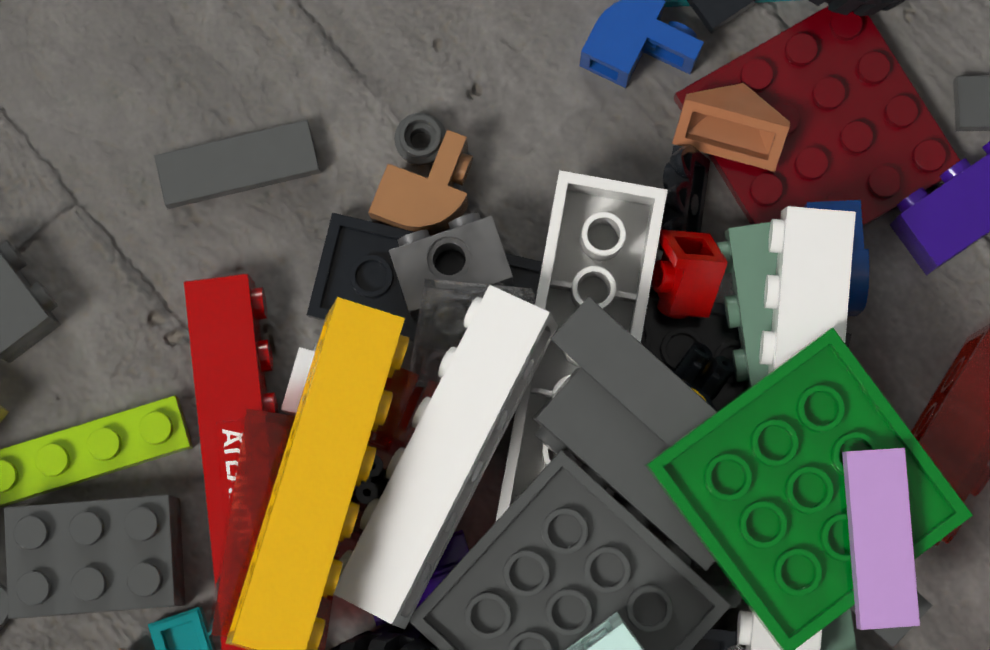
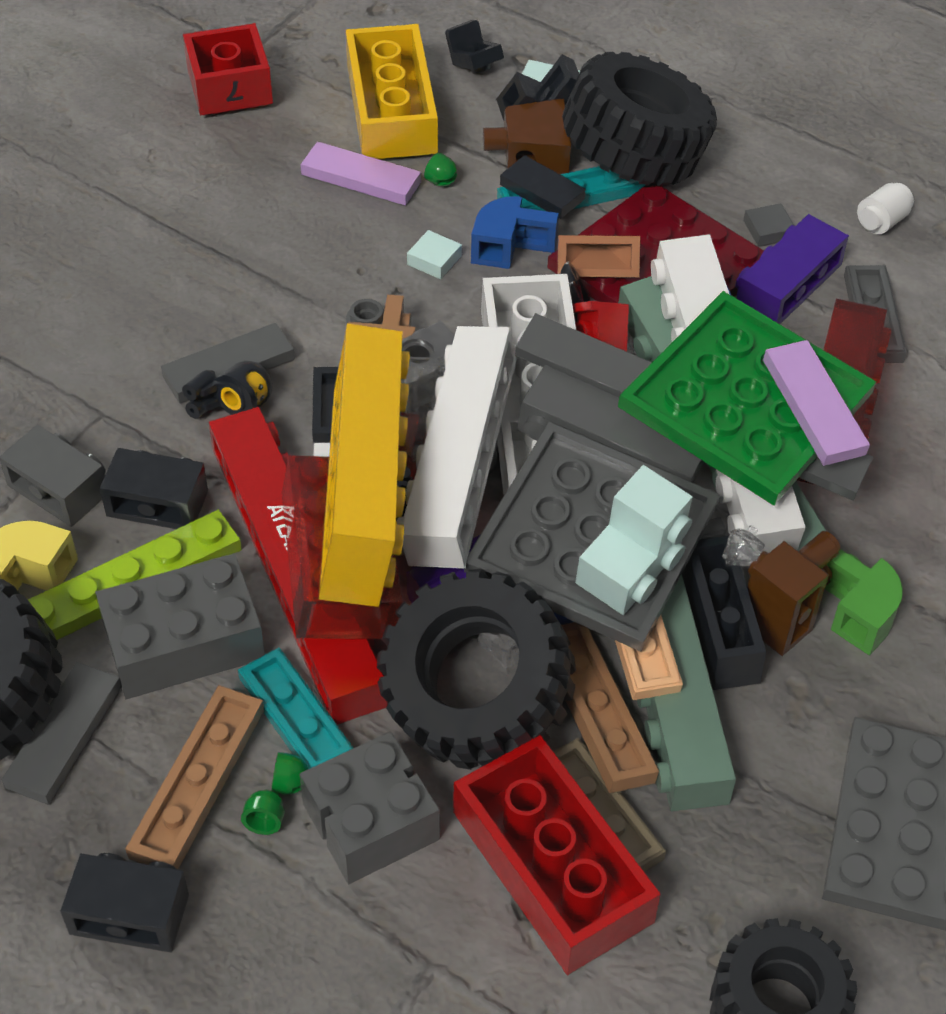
camera: 20 degrees left, 30 degrees down
(108, 349) = (153, 488): none -> black brick
(236, 221) = (235, 390): none -> black piece
(535, 45) = (434, 254): none -> light aqua tile

